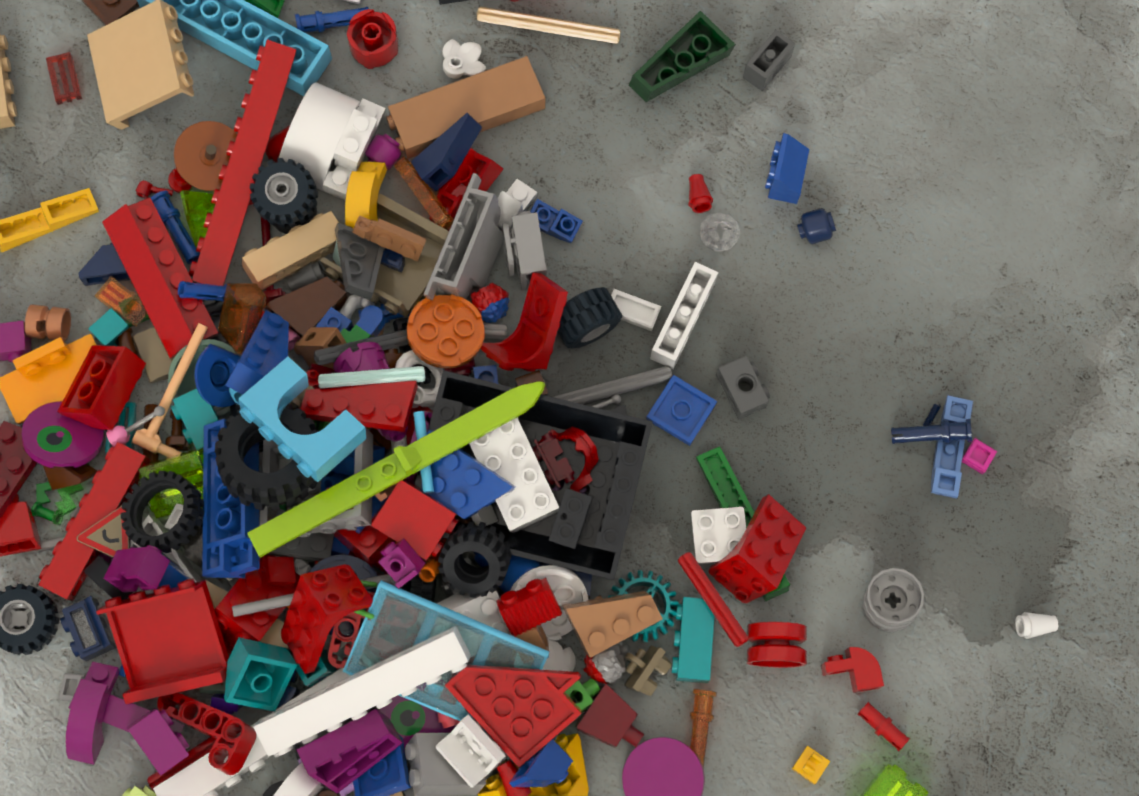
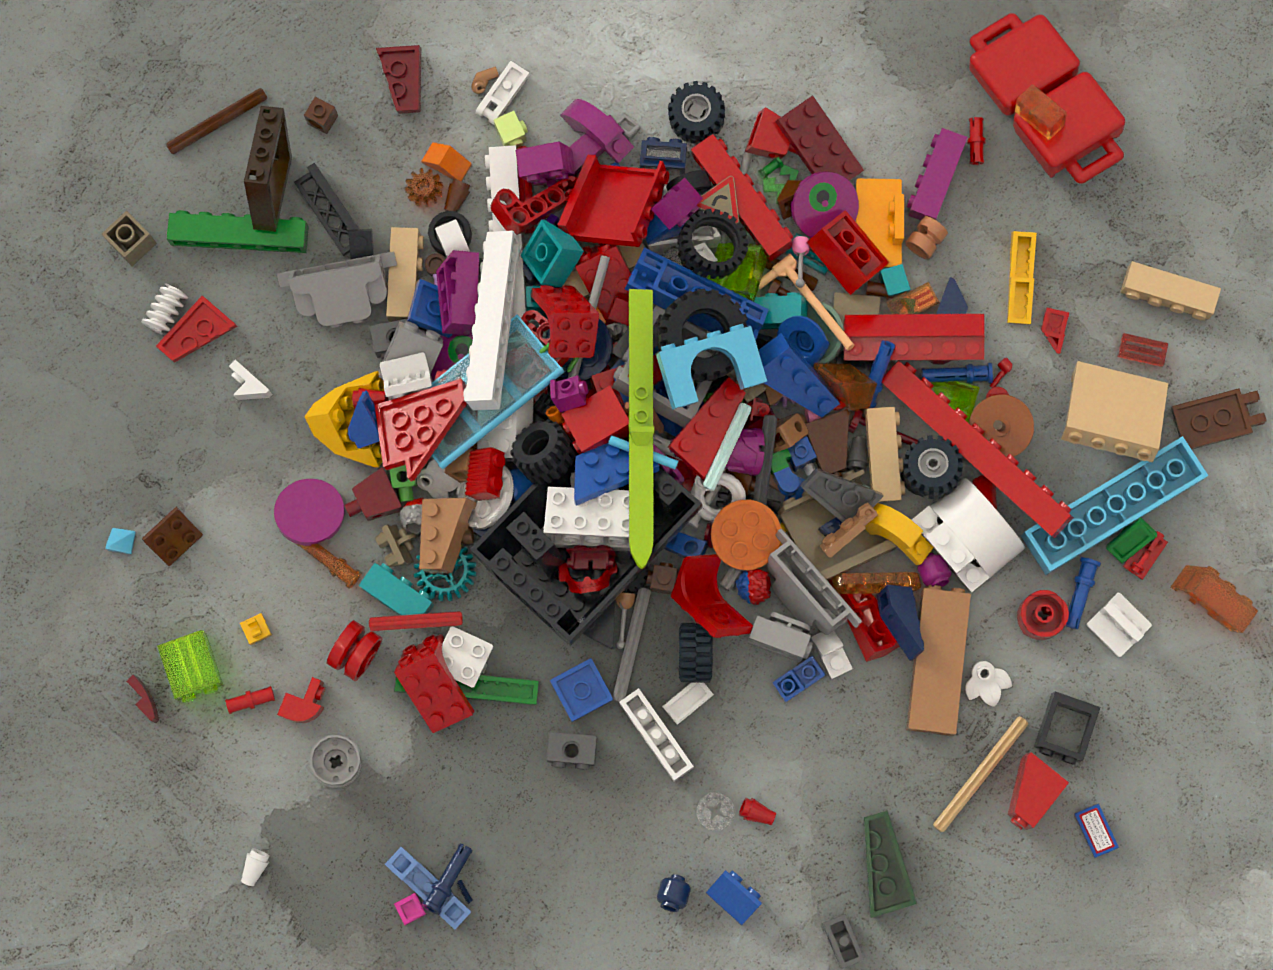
camera: 125 degrees right, 5 degrees up
(82, 166) = (1054, 327): none -> red slope

